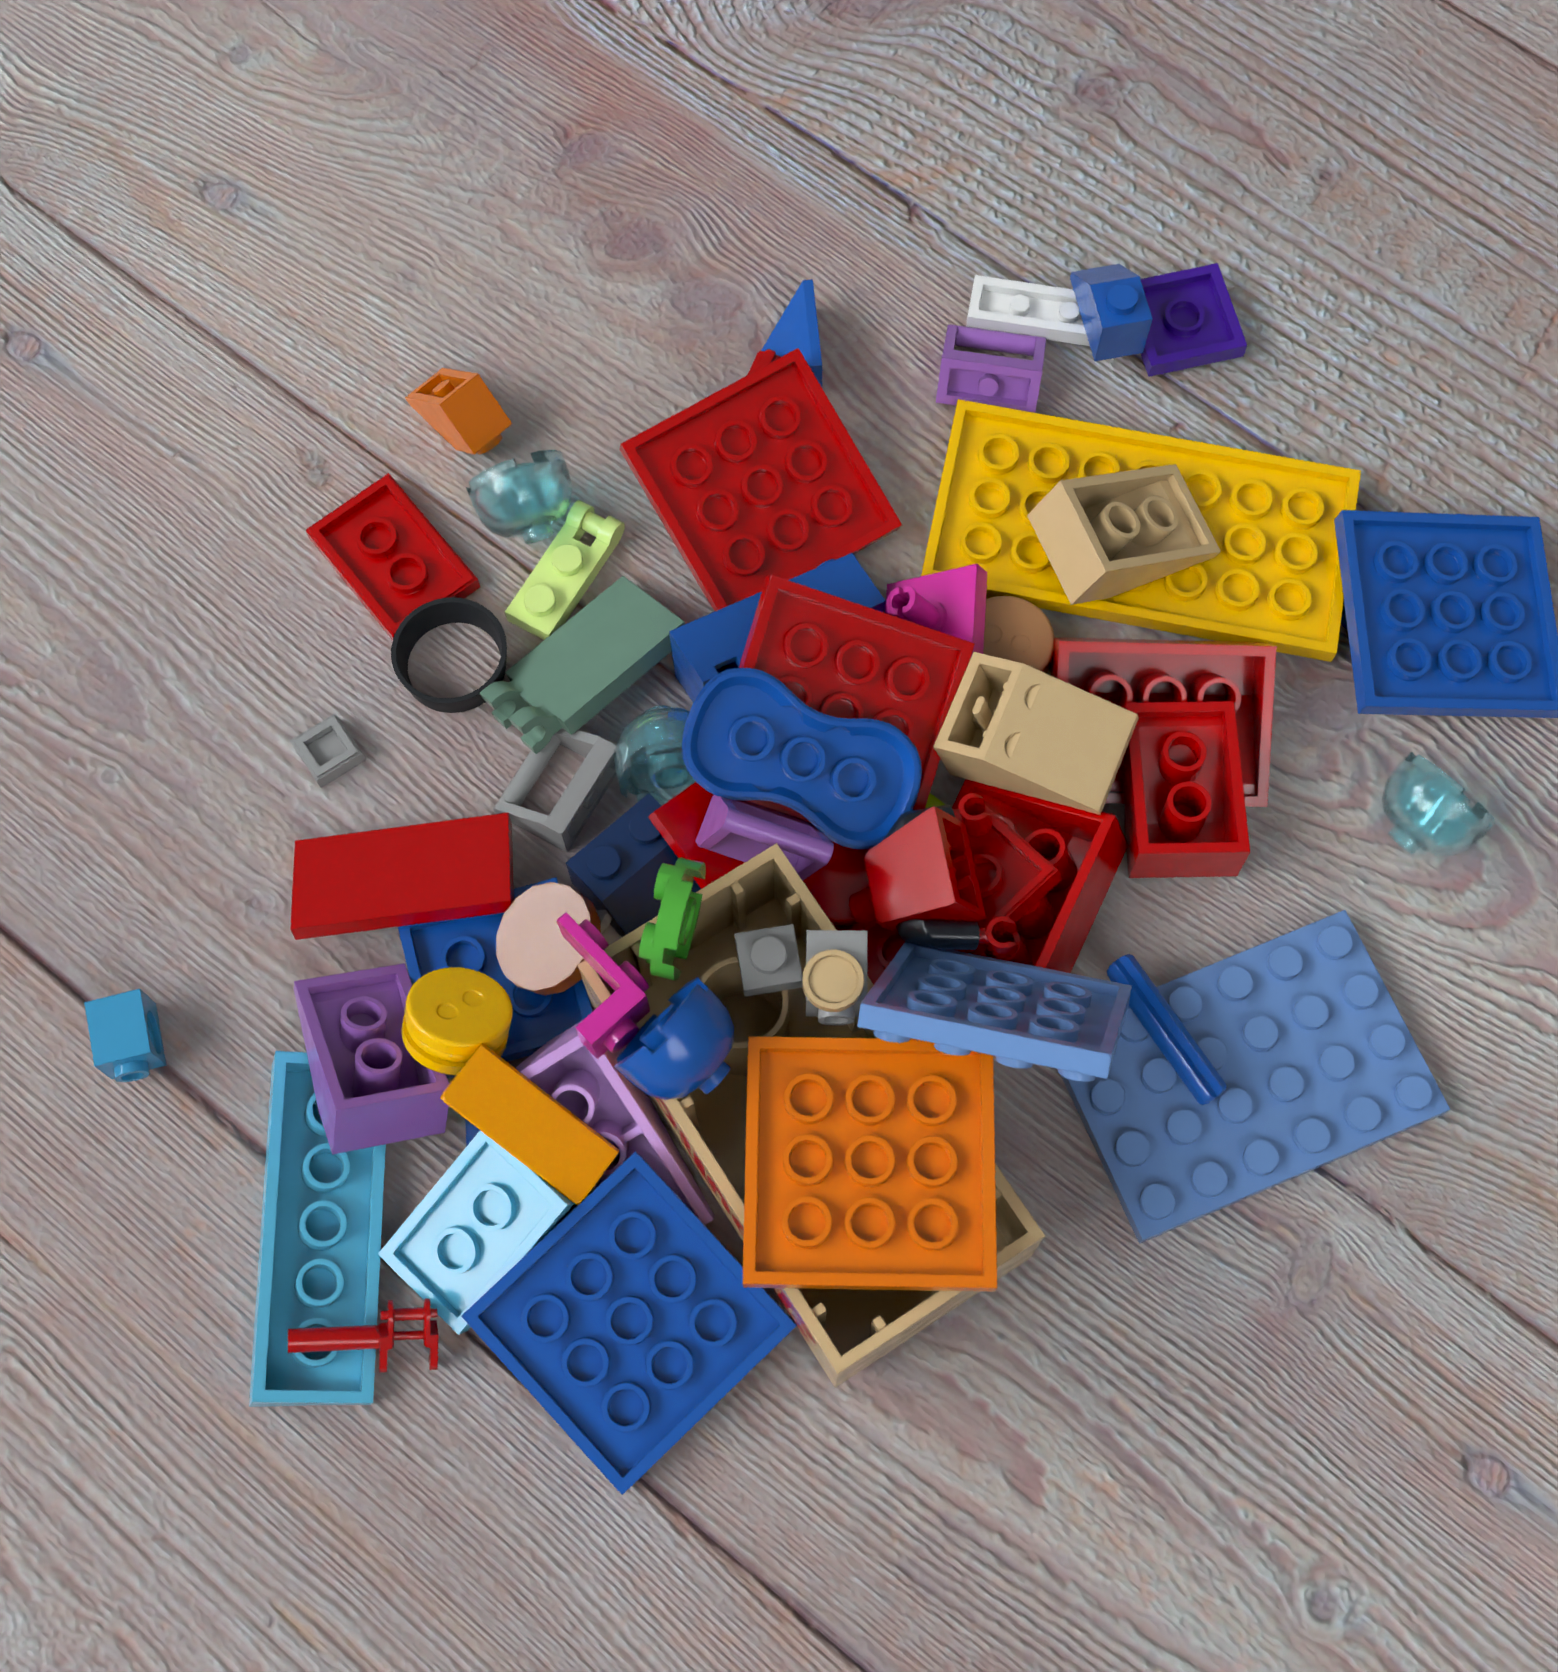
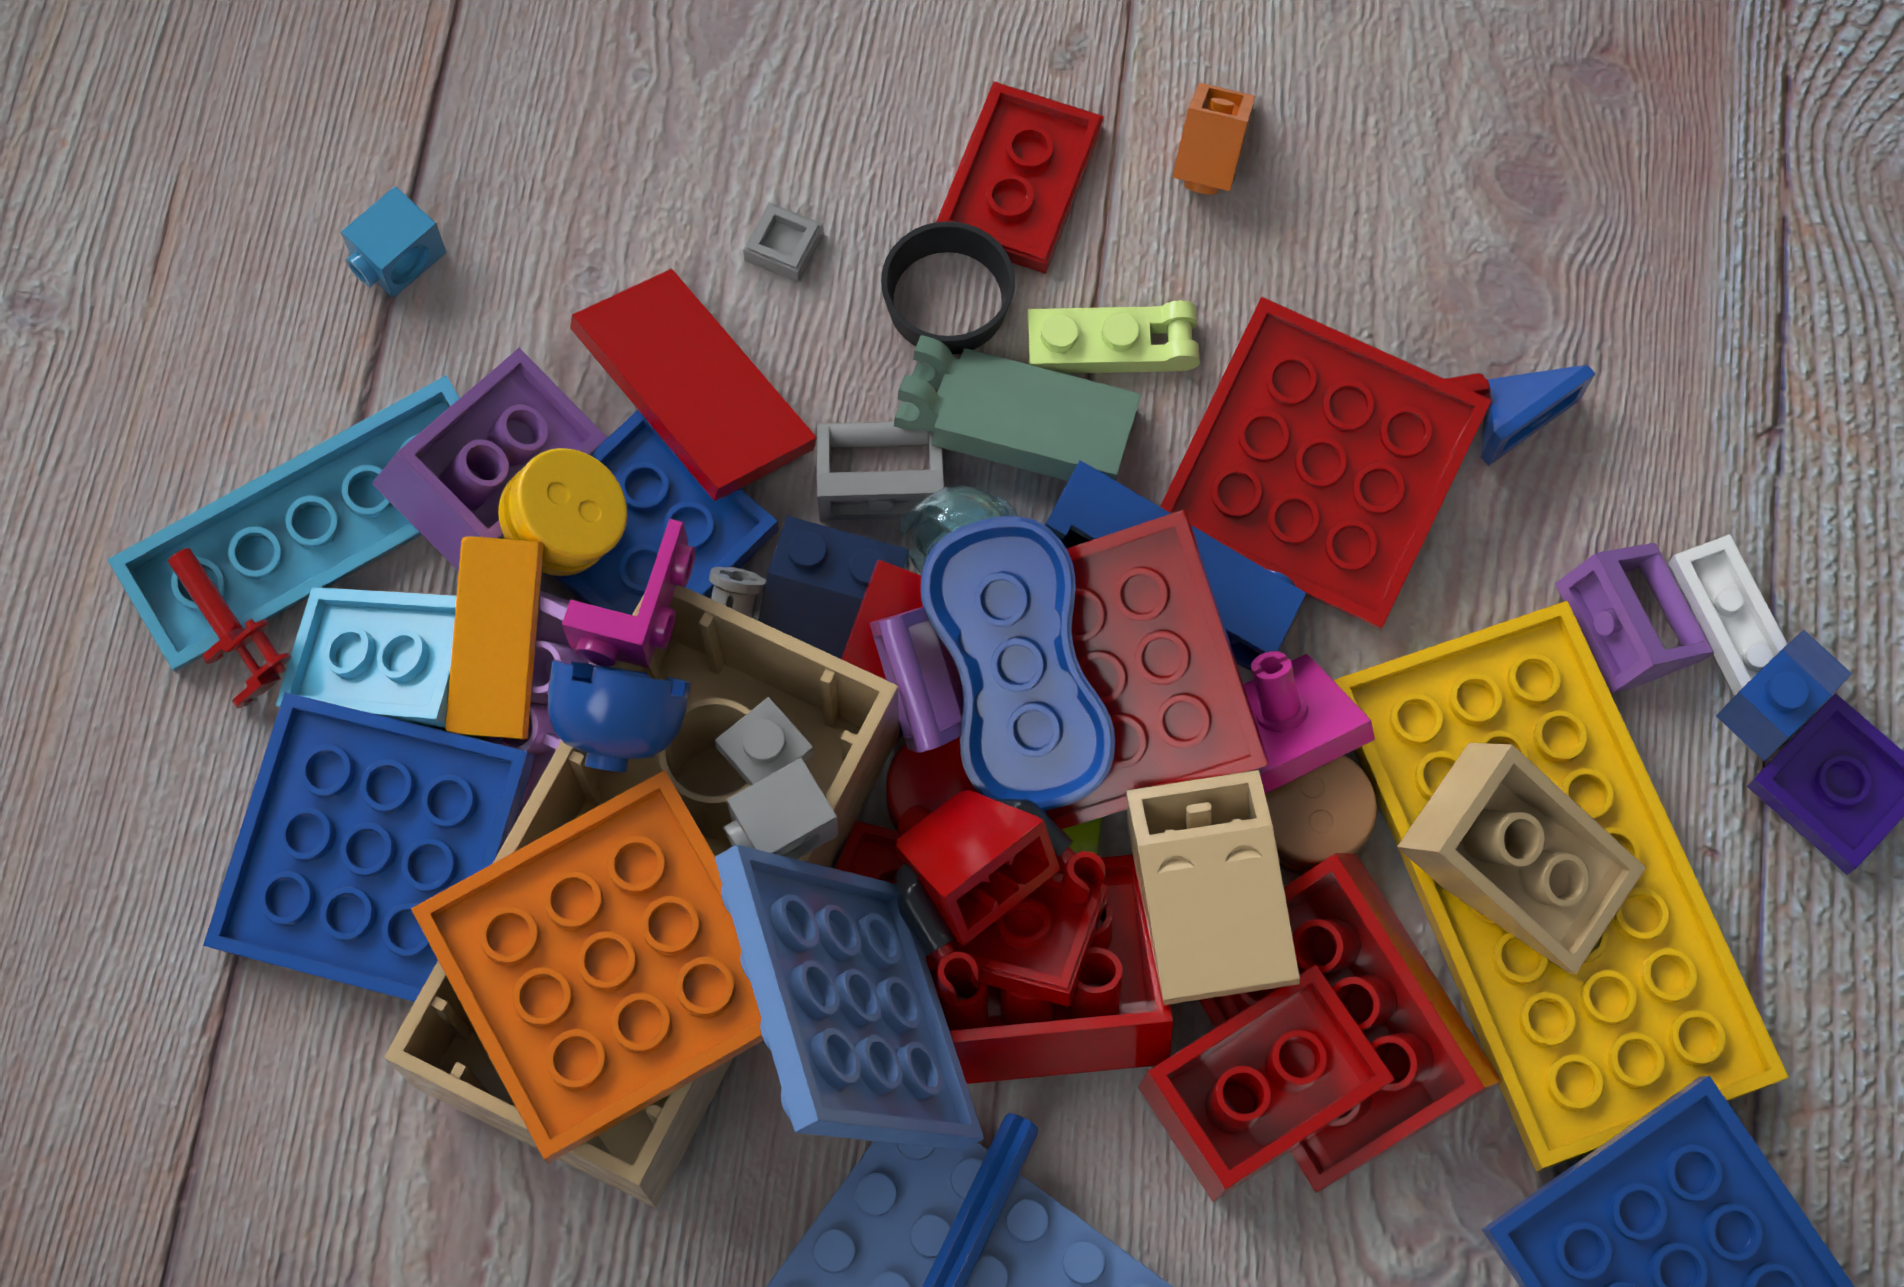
camera: 55 degrees right, 0 degrees up
(523, 497) = (1153, 248): clear light blue cylinder -> none
(531, 942) = (720, 530): tile -> none
(676, 918) = (737, 625): bright green plate -> none
(833, 980) = (760, 812): tan piece -> none

